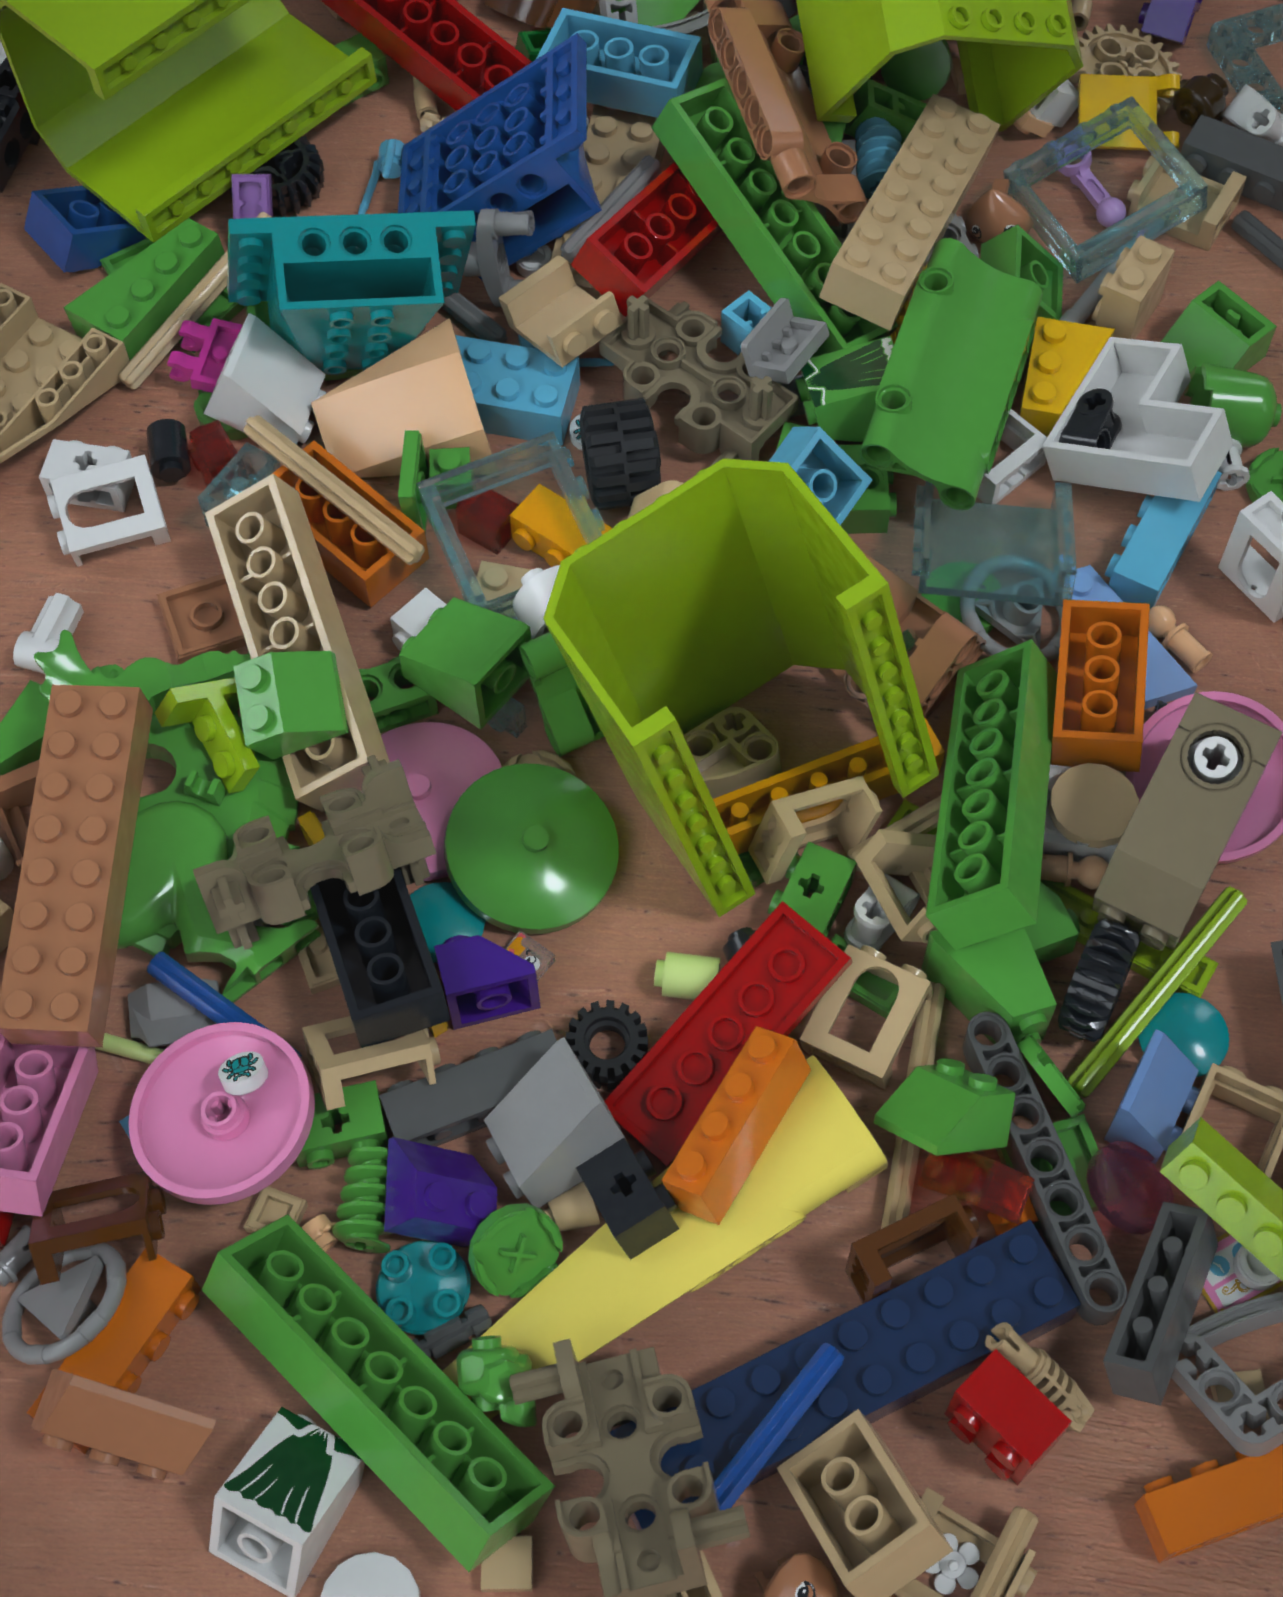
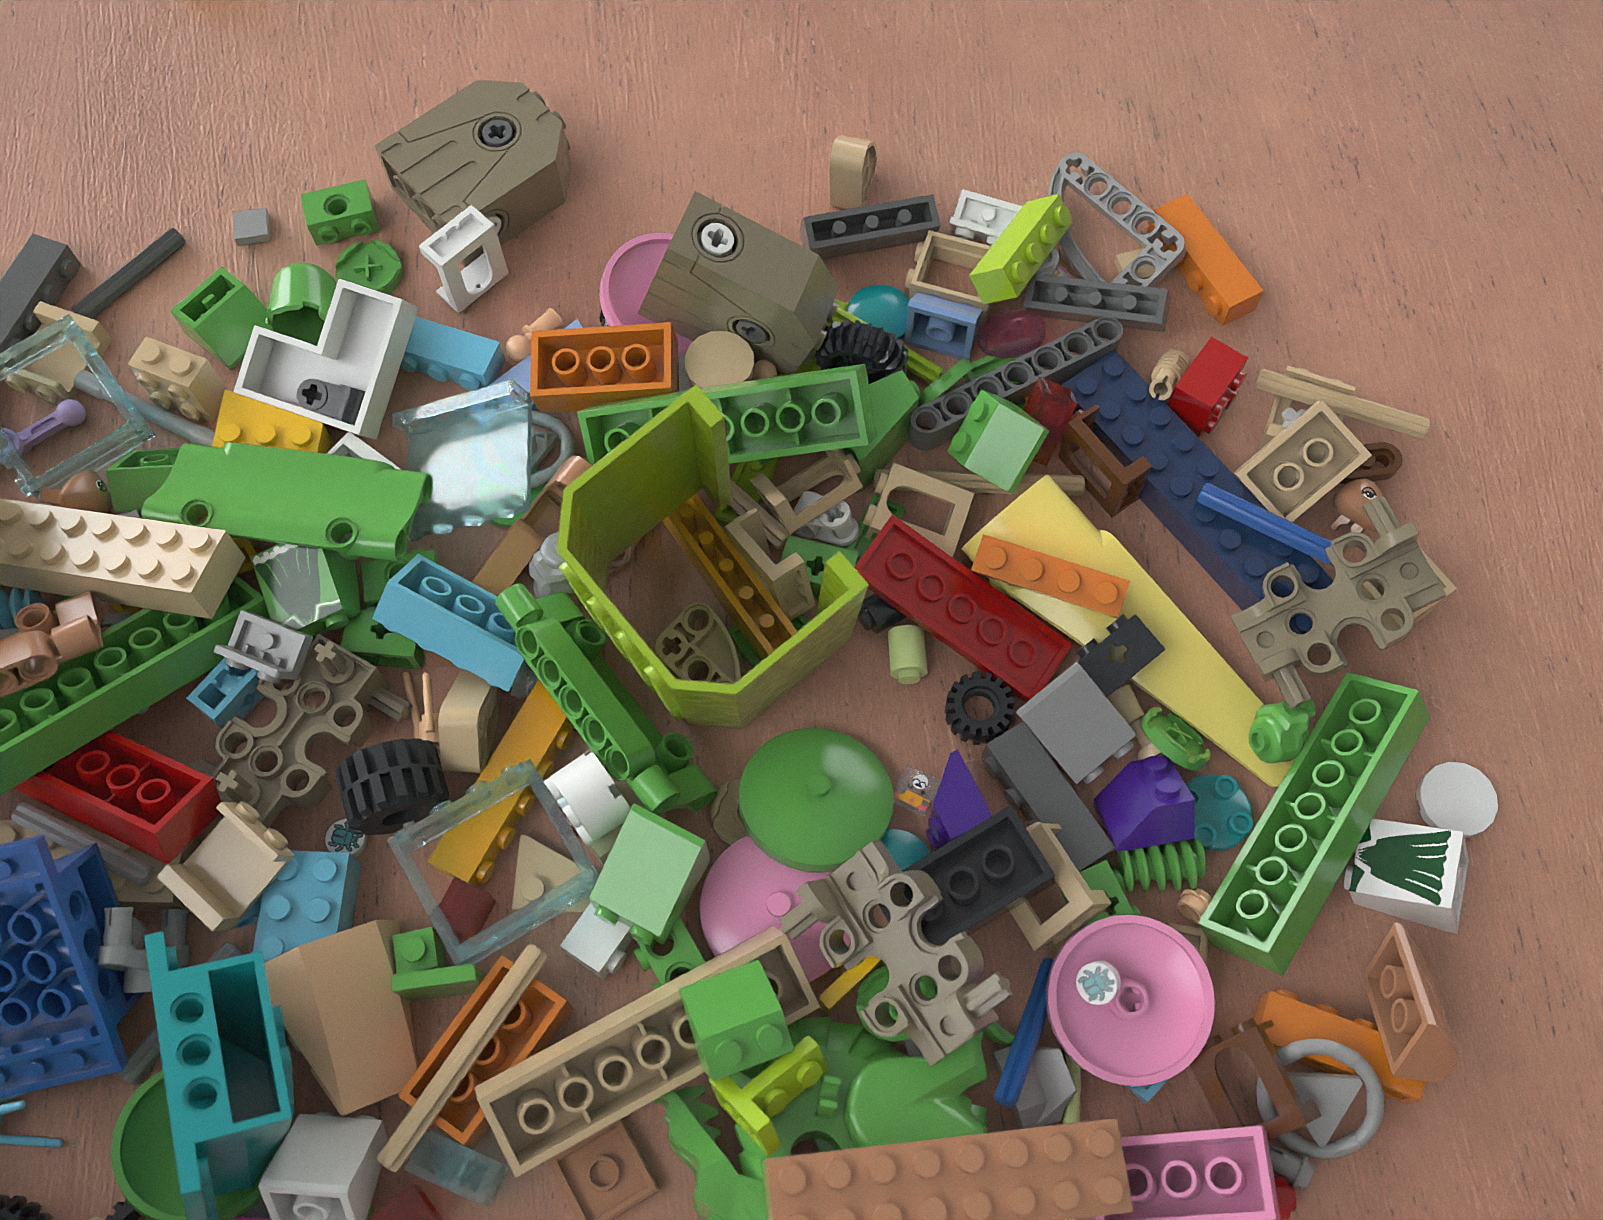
camera: 100 degrees left, 5 degrees up
(455, 1332) = (1246, 782): dark grey axle -> none

